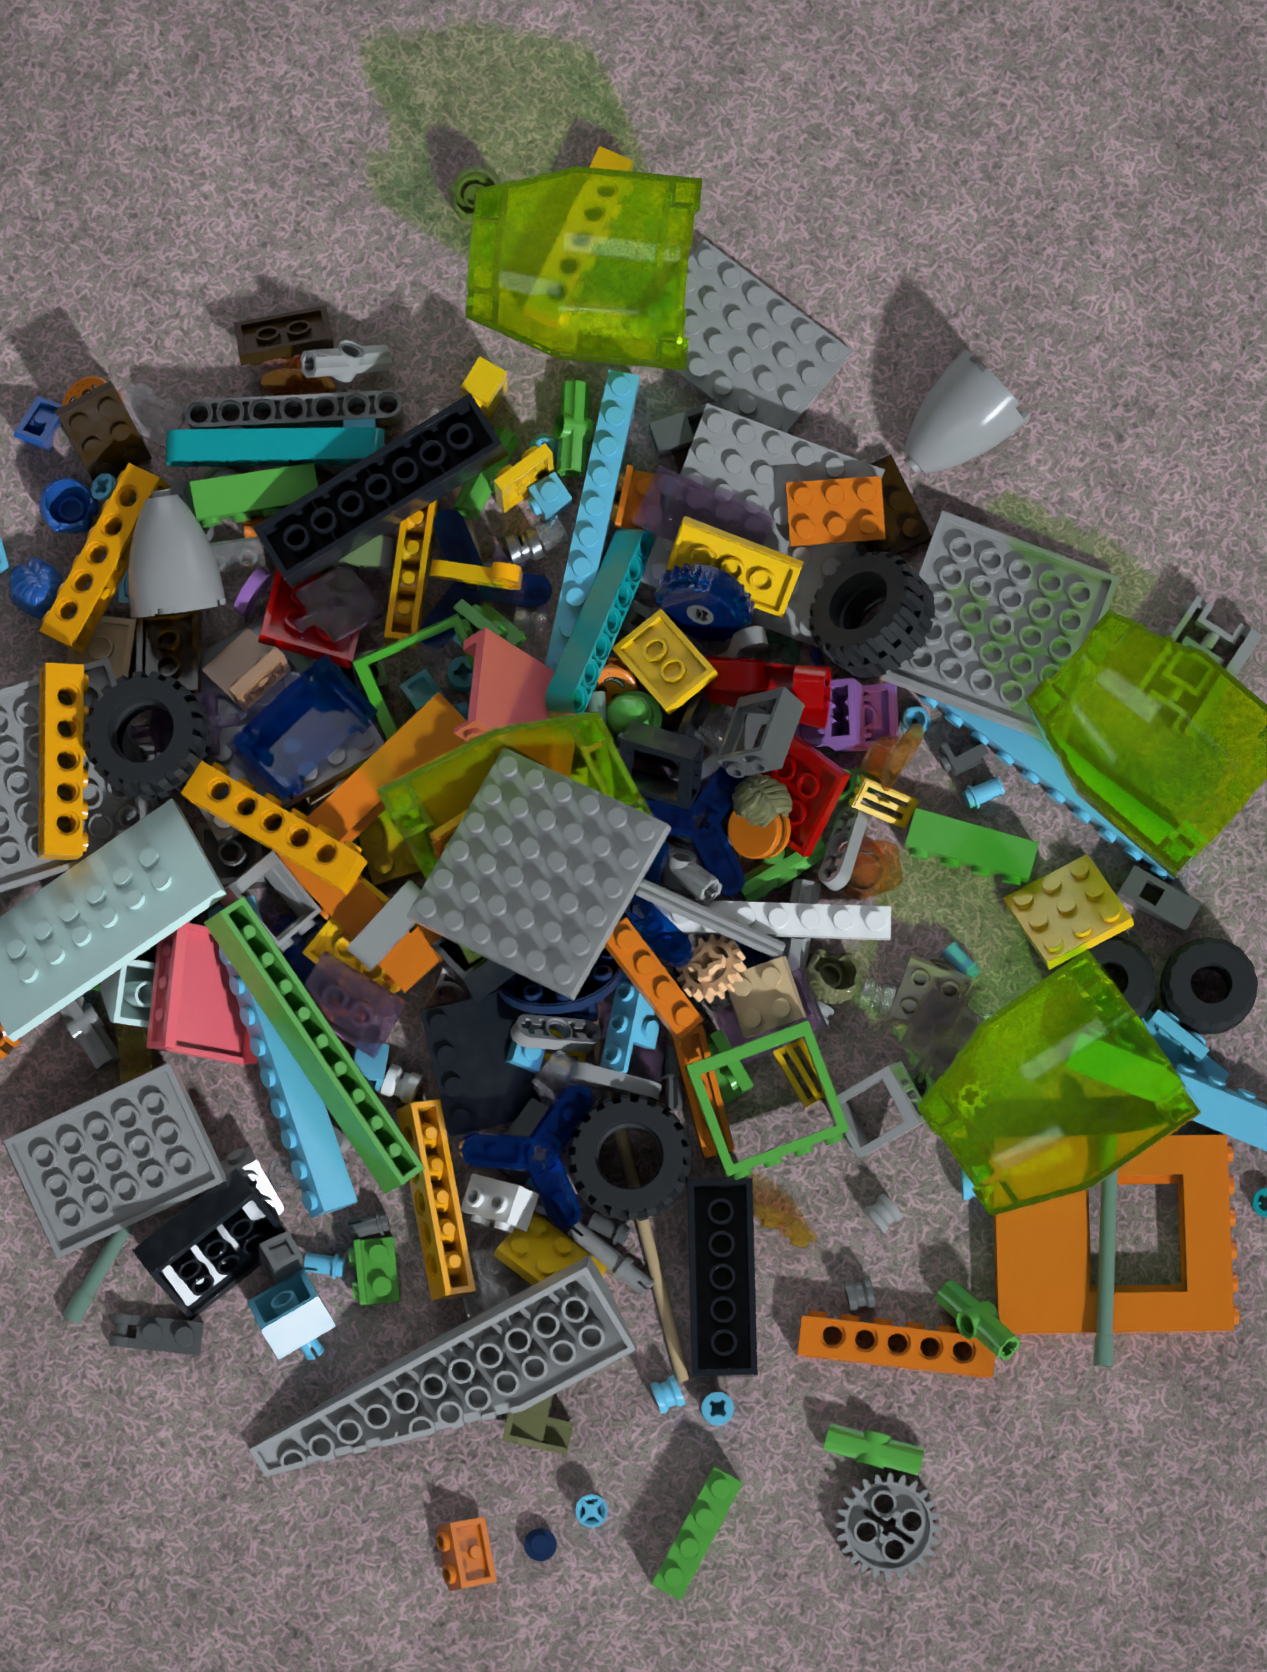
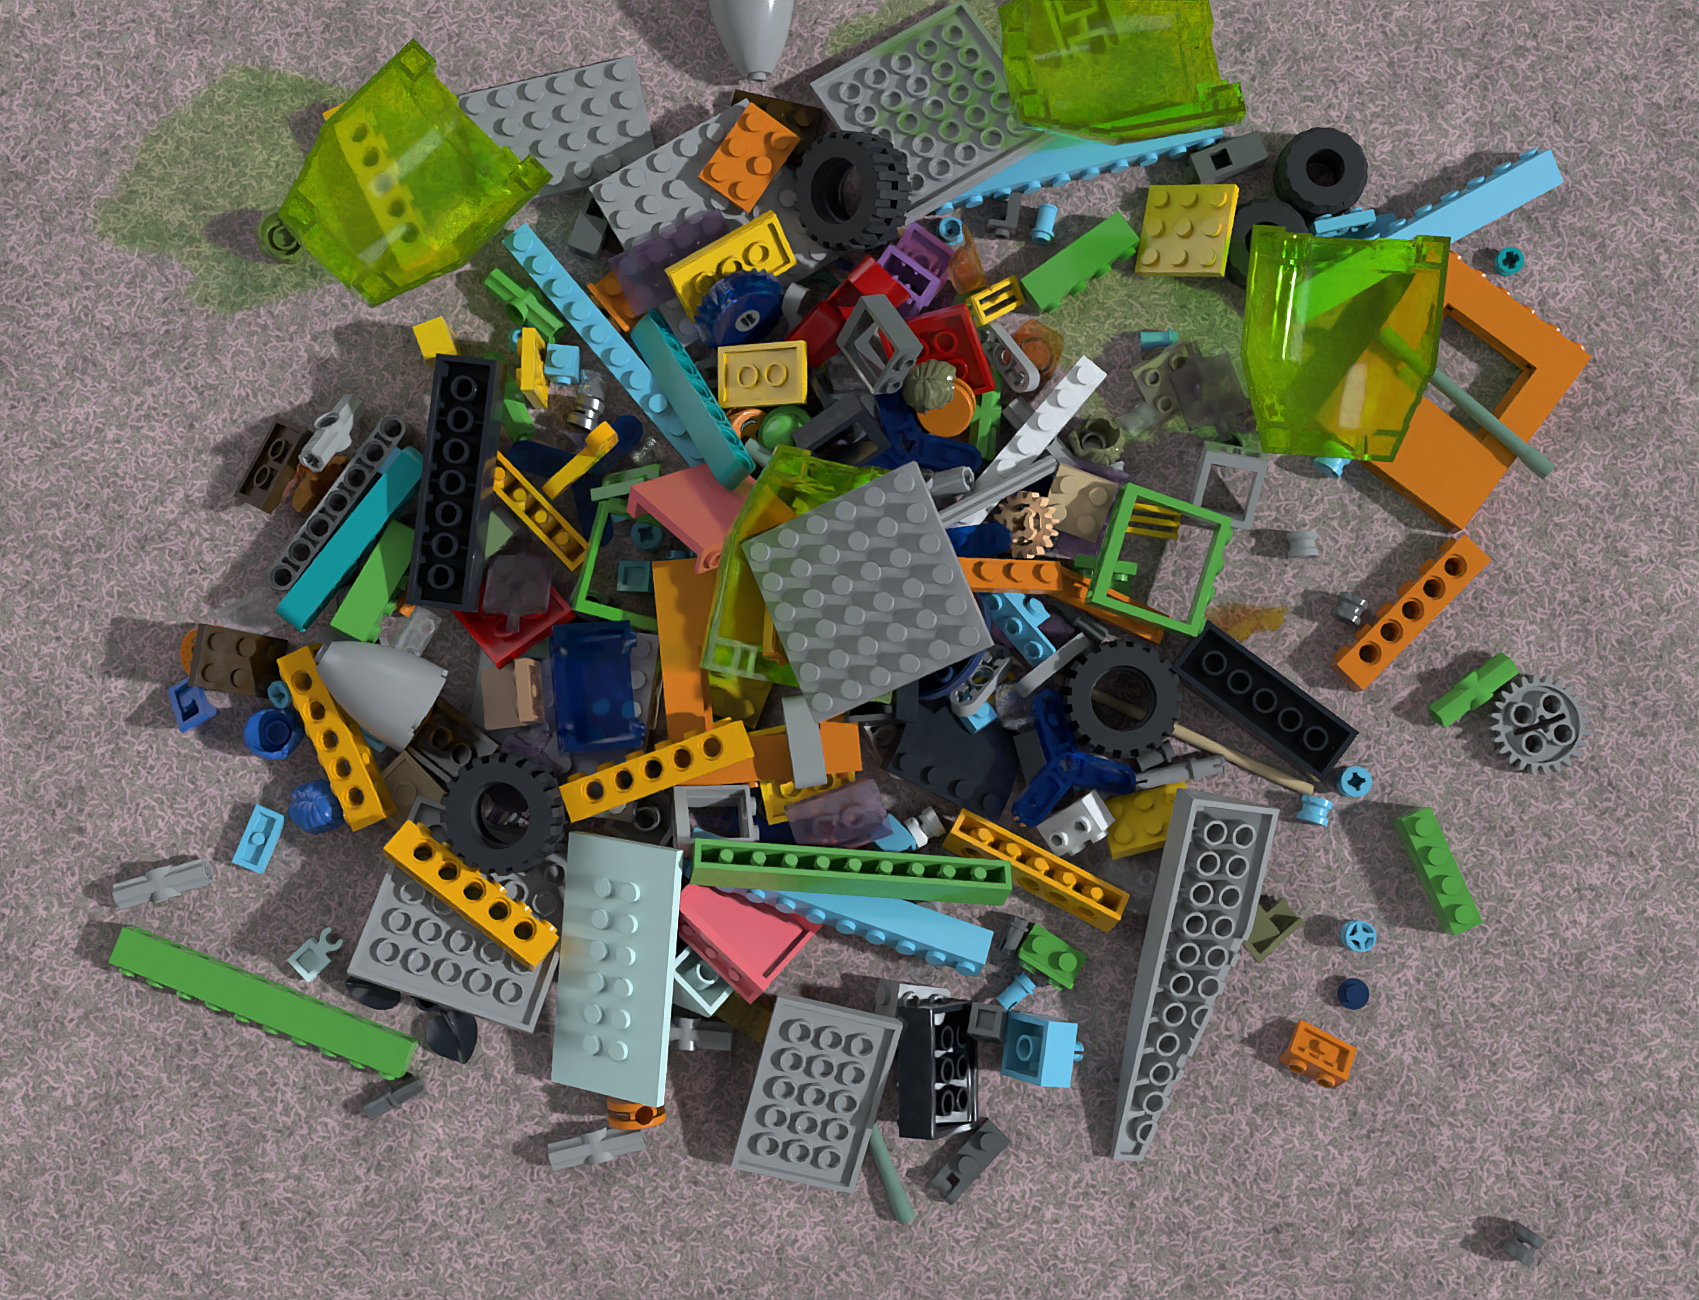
camera: 50 degrees left, 5 degrees up
(252, 591) = (455, 644): medium lavender piece -> none
(977, 1320) = (1442, 537): bright green piece -> none

